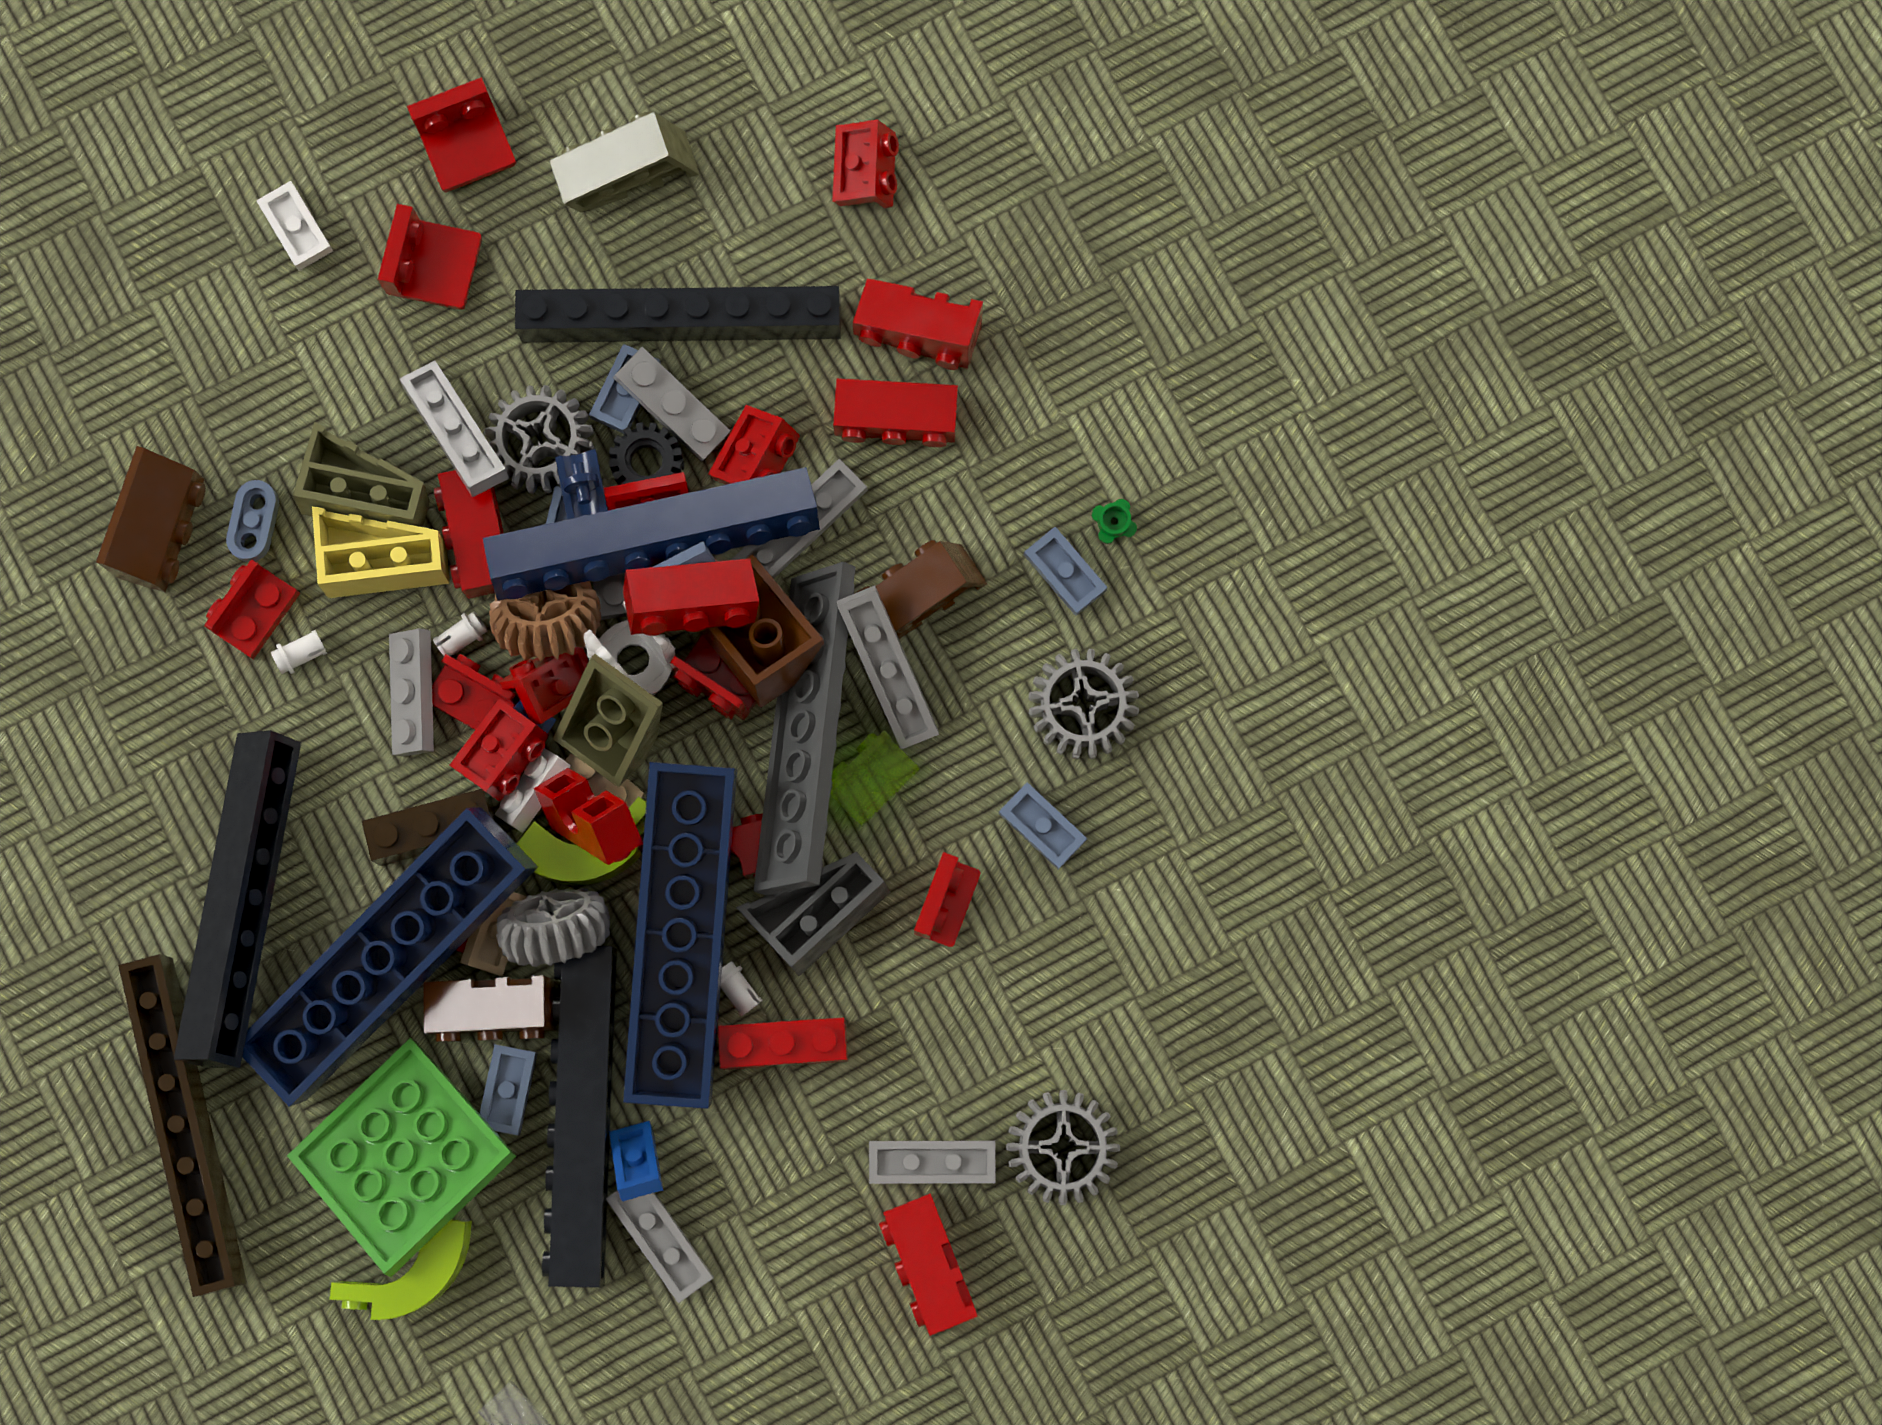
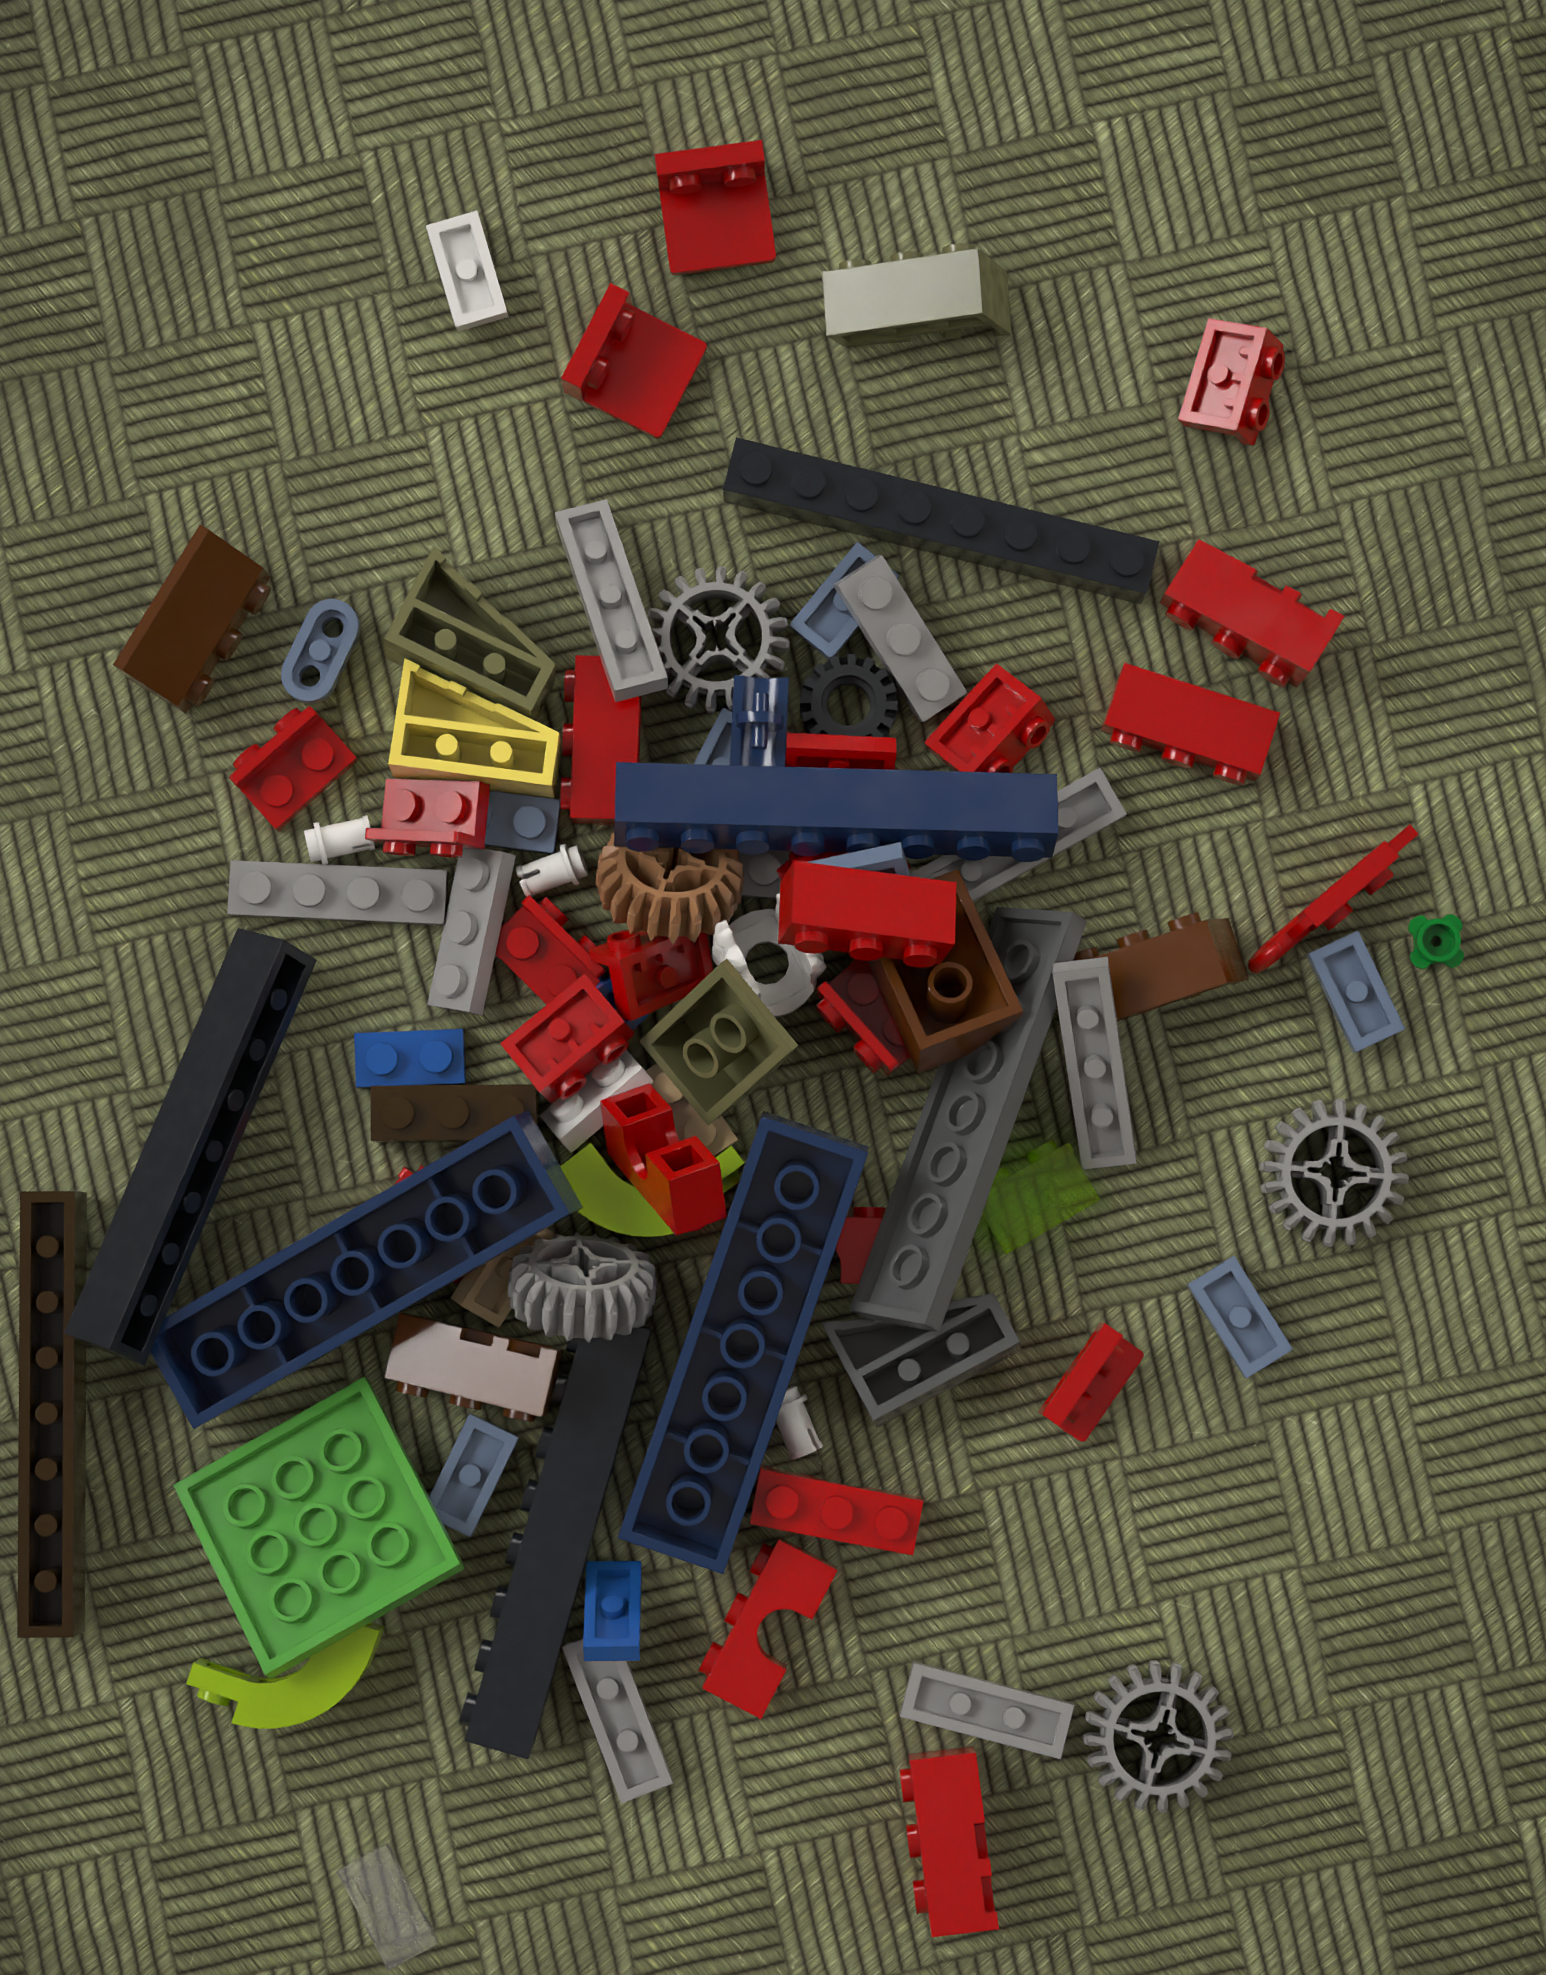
camera: 20 degrees right, 5 degrees up
(307, 691) = (337, 893): none -> light grey plate
(362, 616) = (432, 815): none -> bracket
(388, 795) = (410, 1058): none -> blue plate
(416, 608) = (522, 822): none -> sand blue plate
(742, 1178) = (740, 1667): none -> red arch
(1032, 512) = (1332, 904): none -> red plate

